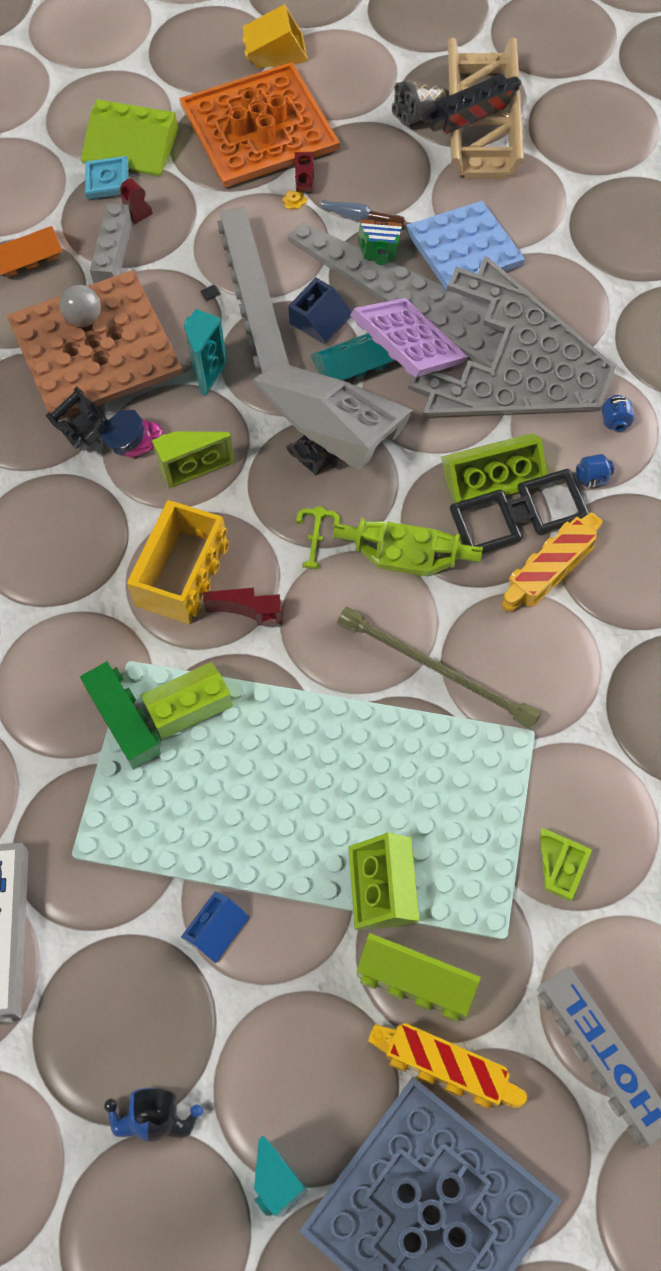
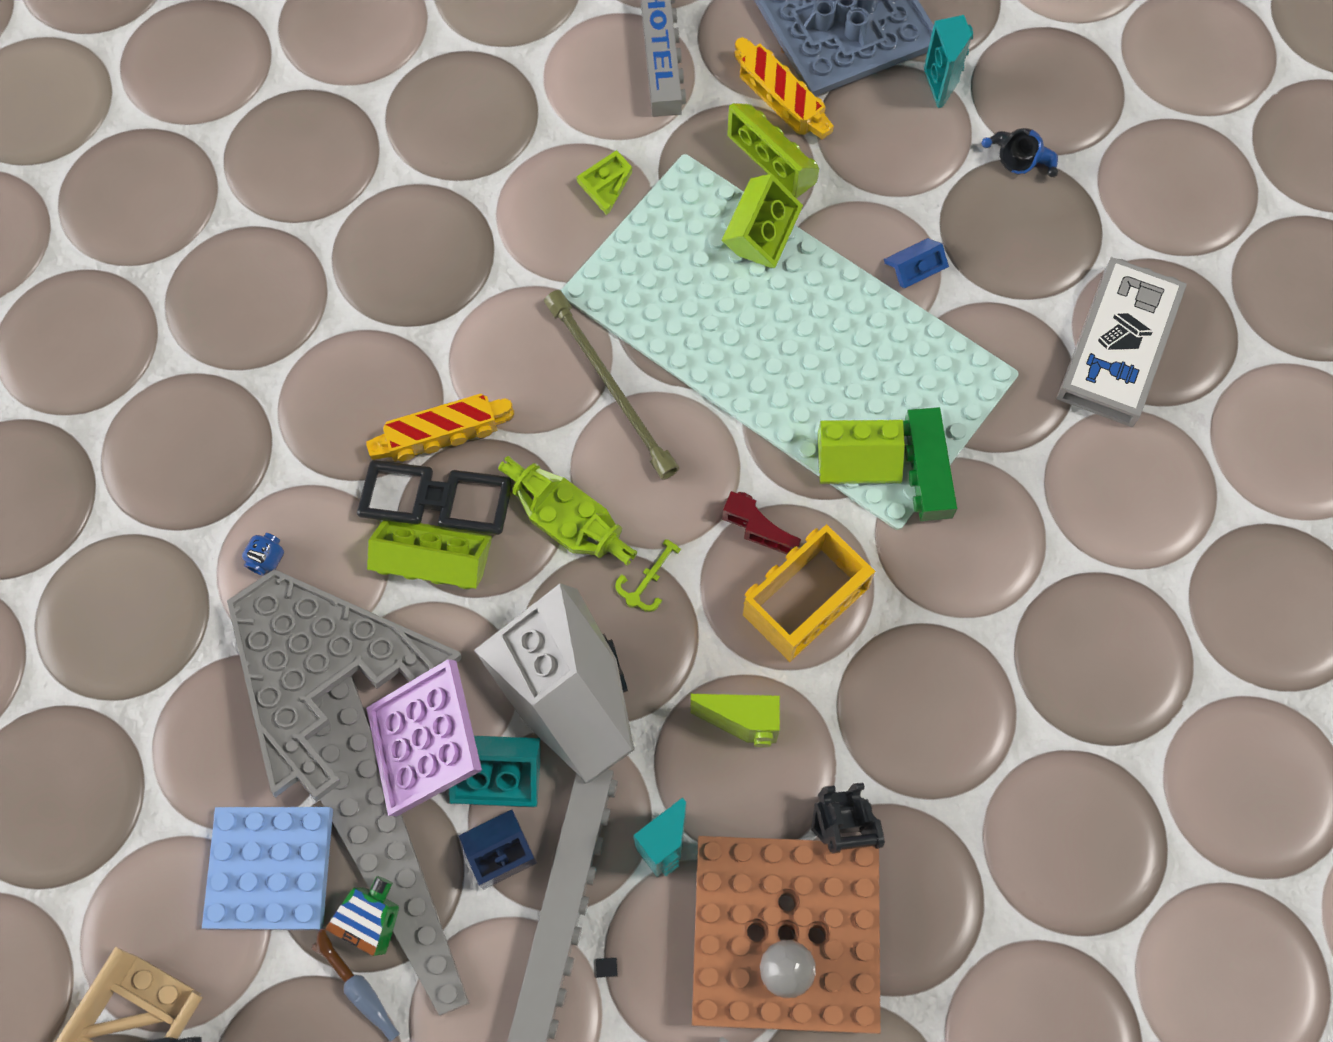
camera: 155 degrees left, 5 degrees up
(130, 434) = (791, 784): dark blue piece -> none
(594, 470) = (333, 502): blue head -> none

